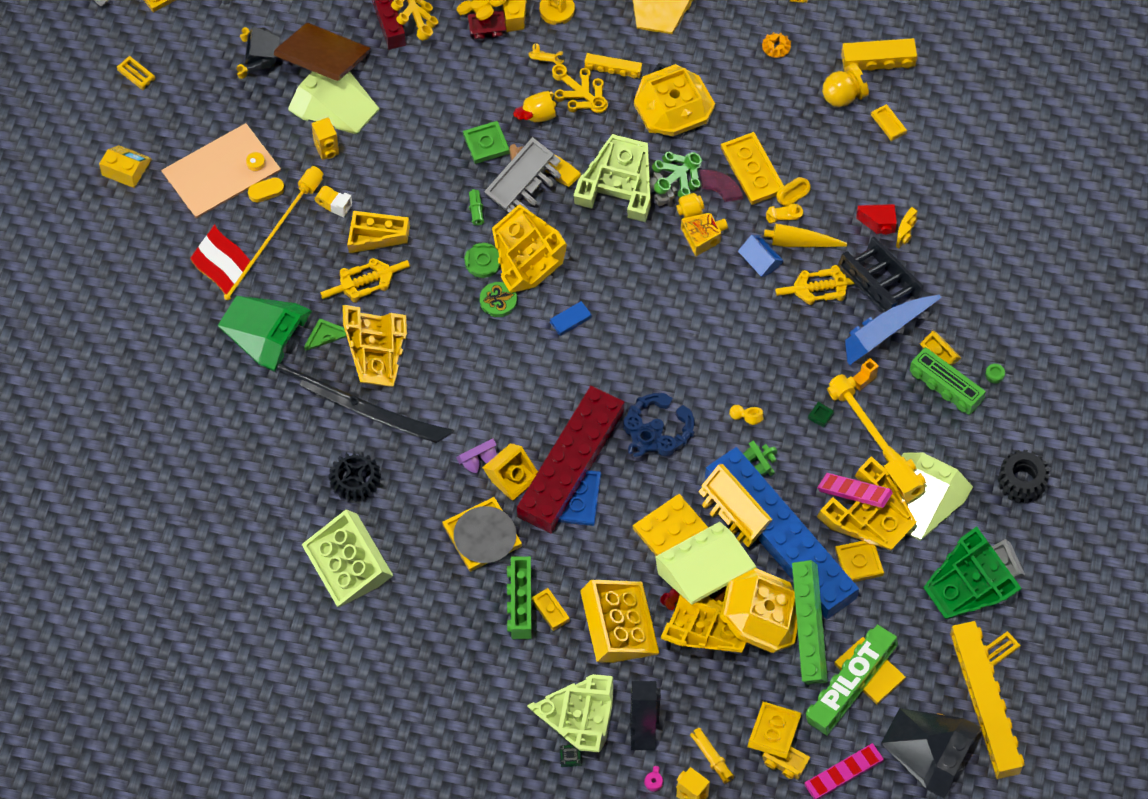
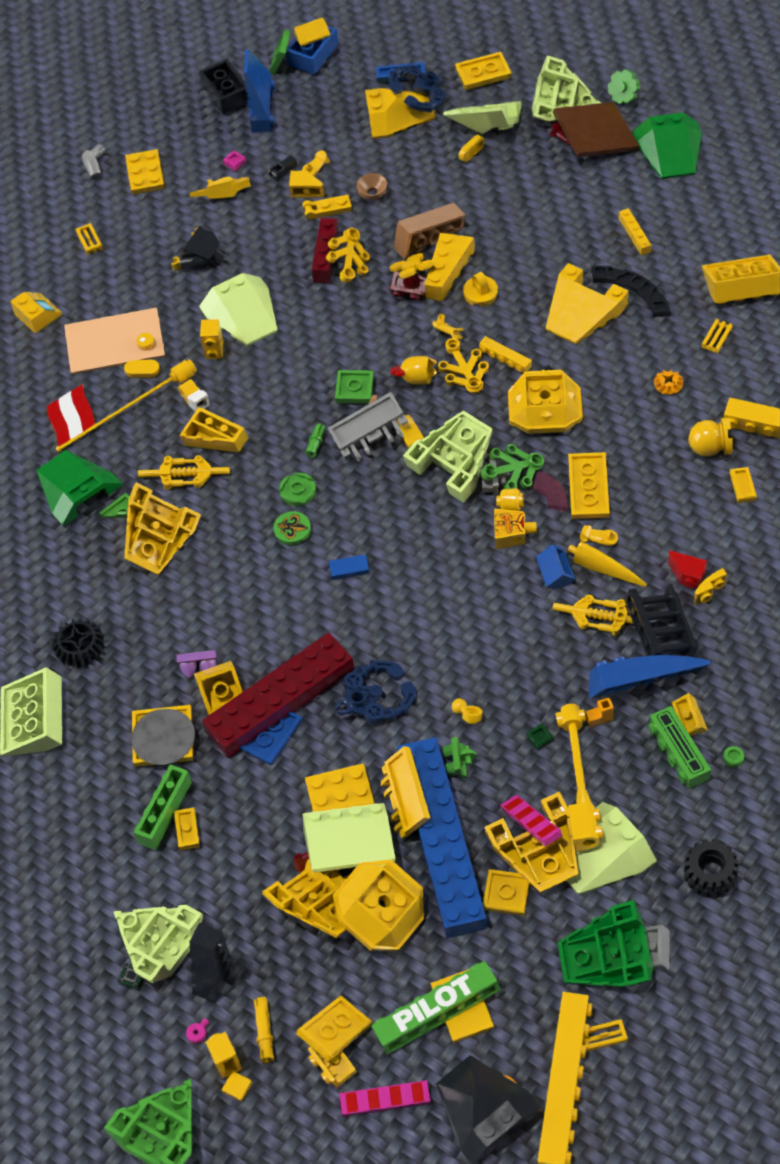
camera: 30 degrees right, 5 degrees down
(322, 51) = (249, 265): reddish brown tile -> none
(406, 424) = (158, 618): black piece -> none
(527, 249) = (337, 491): yellow wedge -> none
(618, 620) = (243, 863): yellow slope -> none
(793, 191) = (616, 518): yellow tile -> none
(809, 622) = (418, 933): bright green brick -> none

